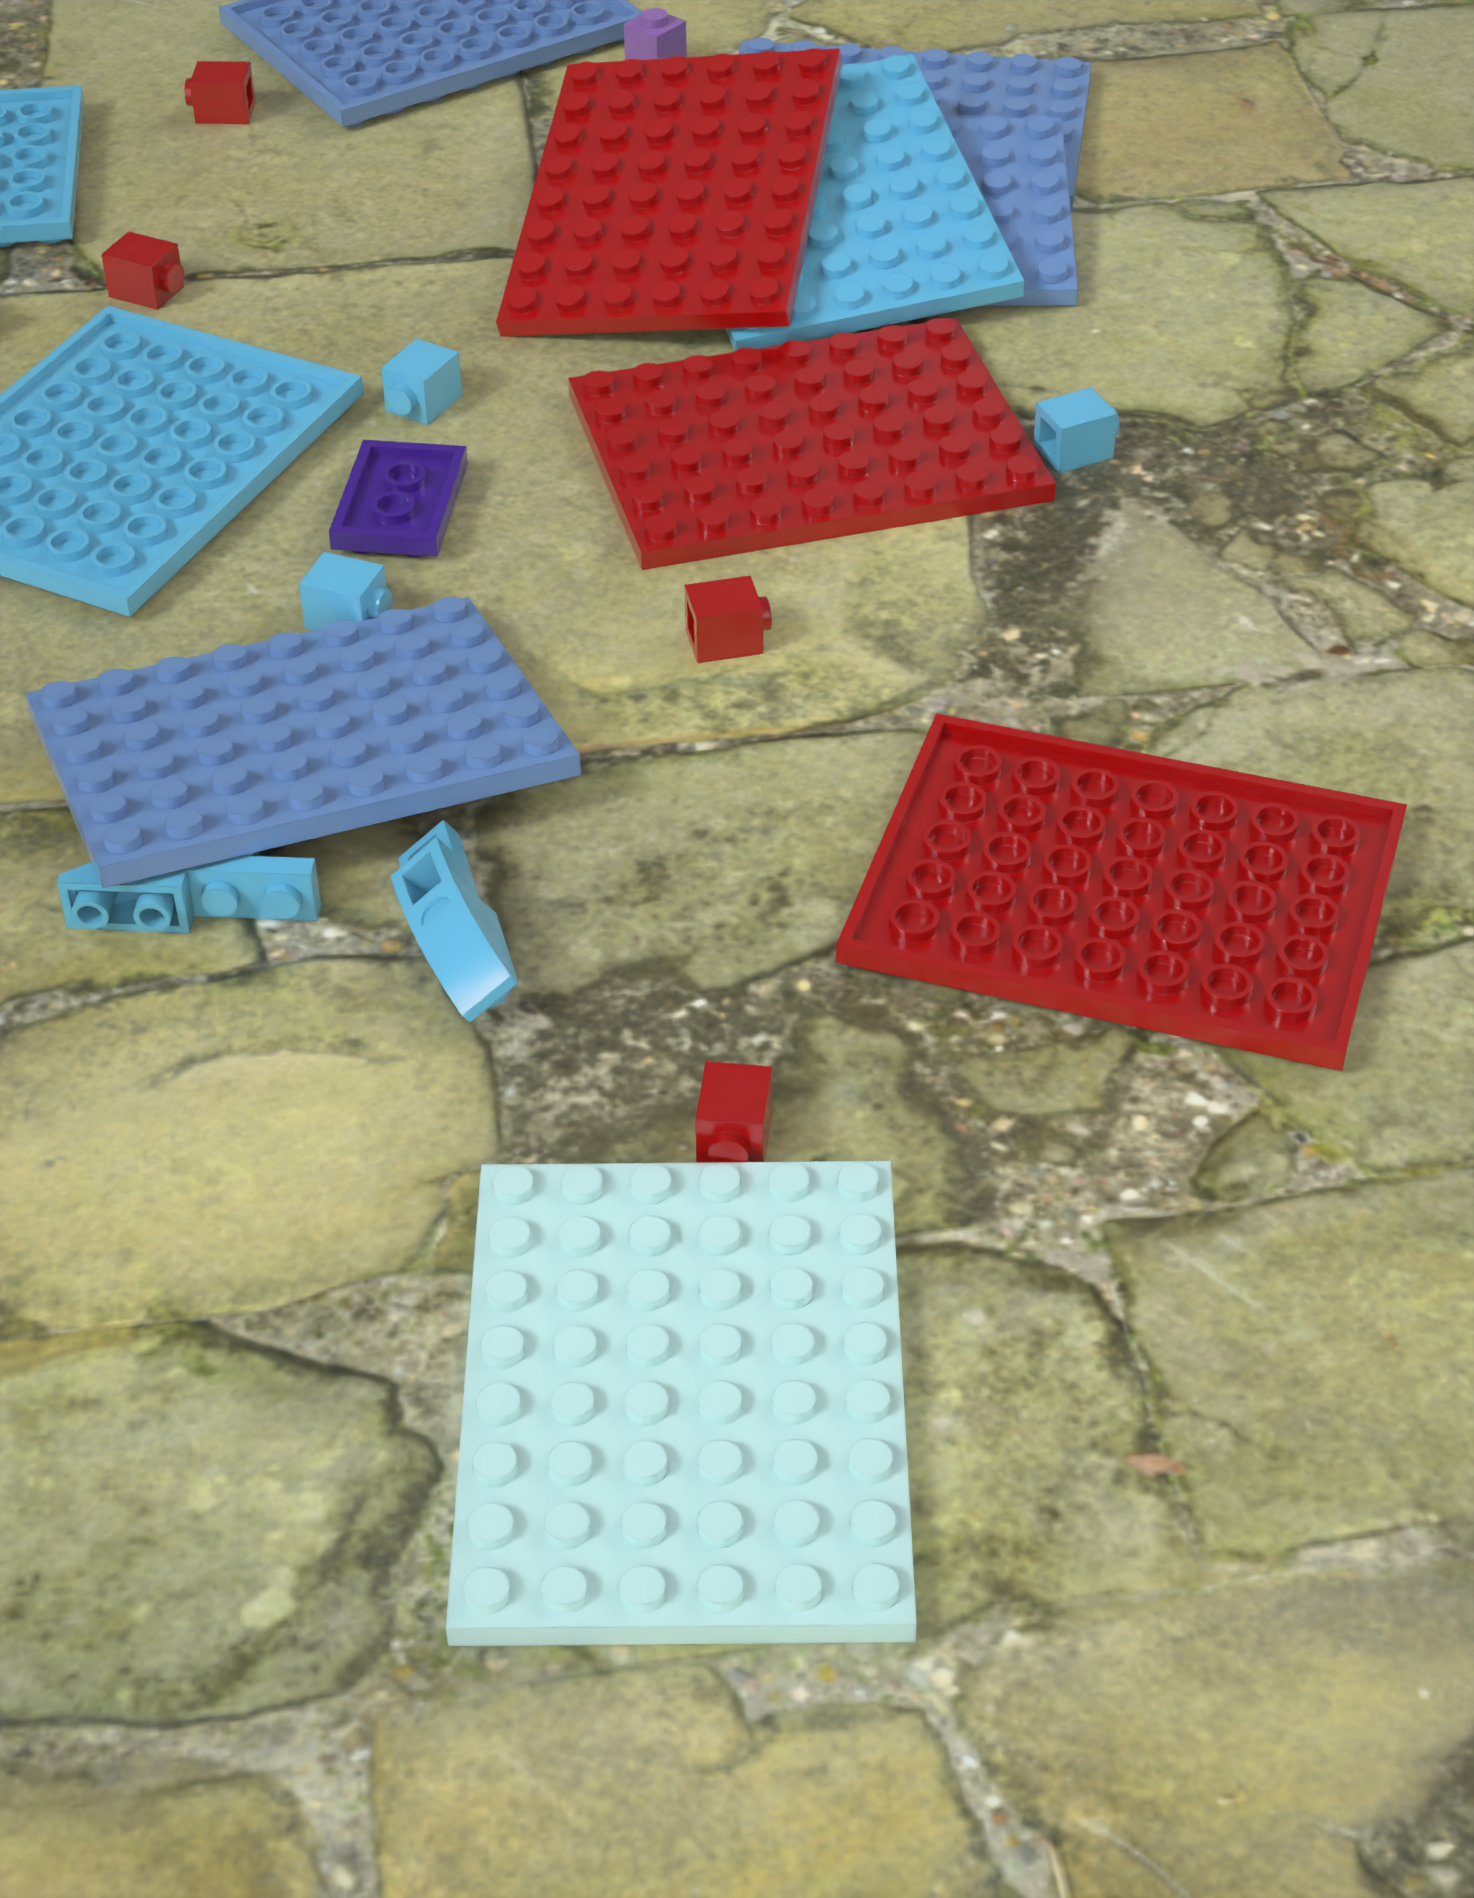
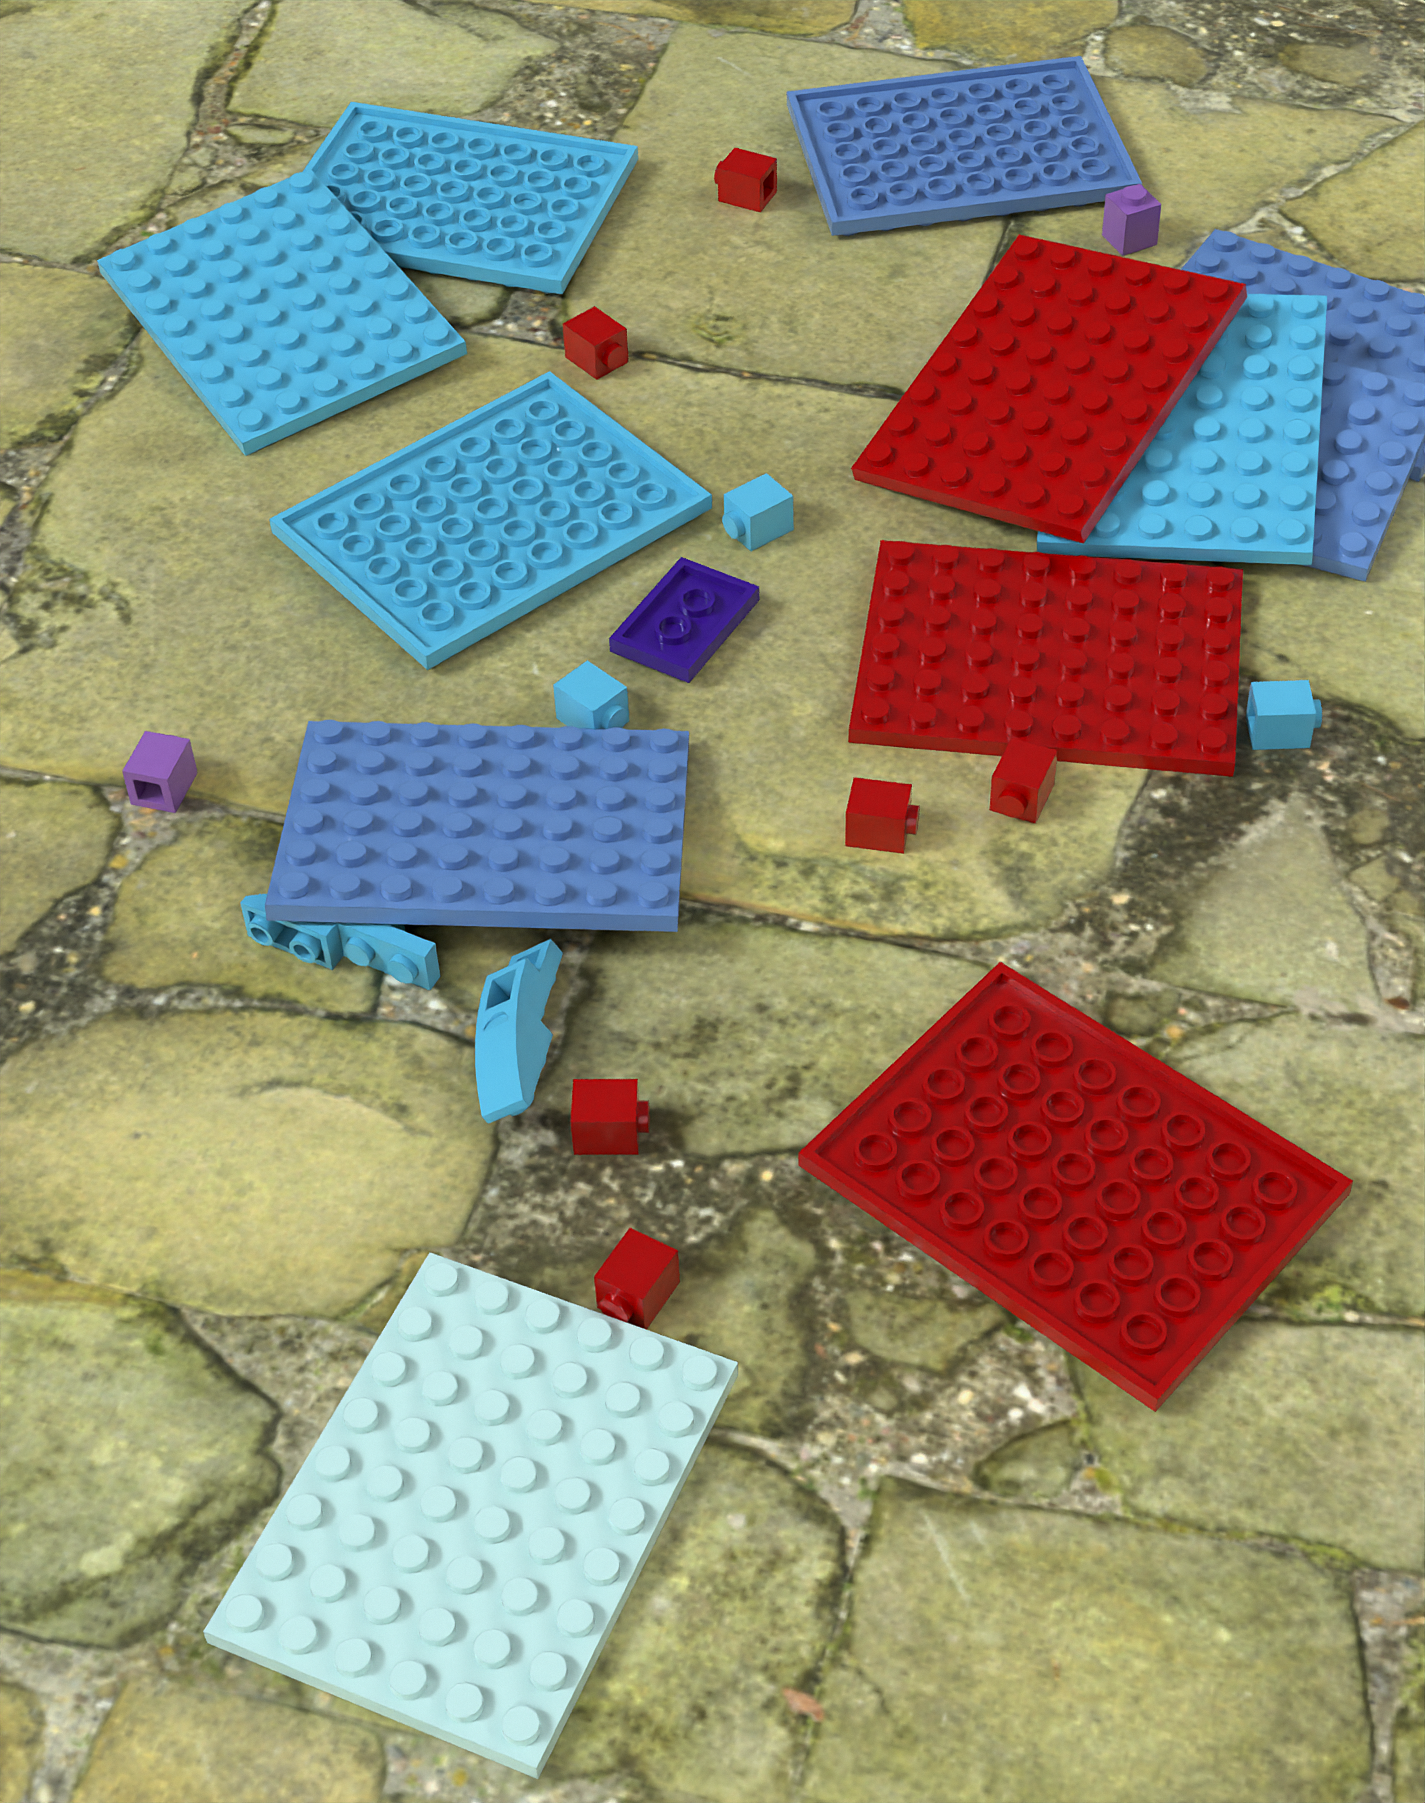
camera: 25 degrees right, 5 degrees up
(604, 974) = (607, 1116): none -> red brick
(855, 550) = (1023, 780): none -> red brick

